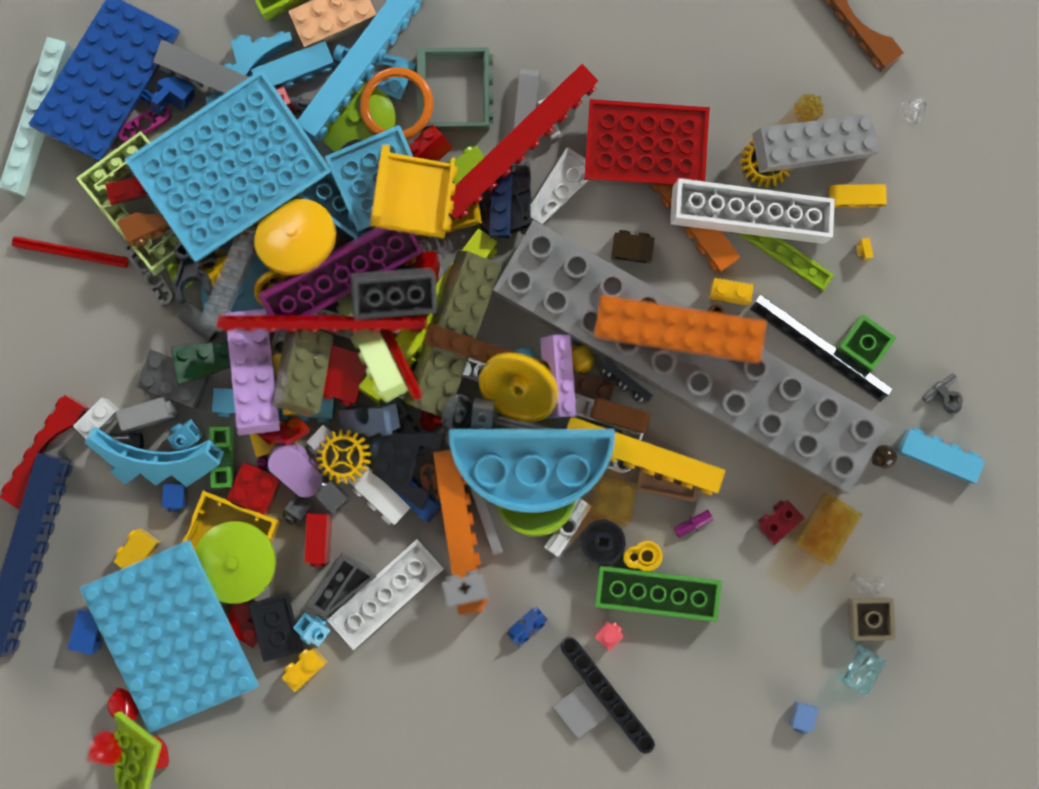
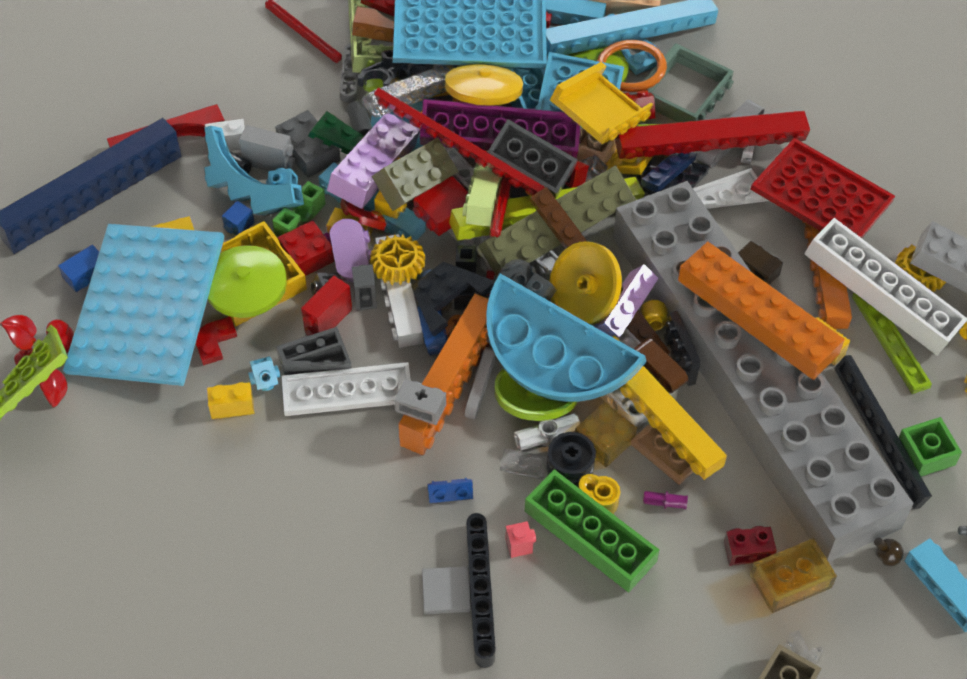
camera: 25 degrees right, 30 degrees down
(274, 628) = (233, 353): black plate -> none
(377, 420) = (449, 248): sand blue arch -> none

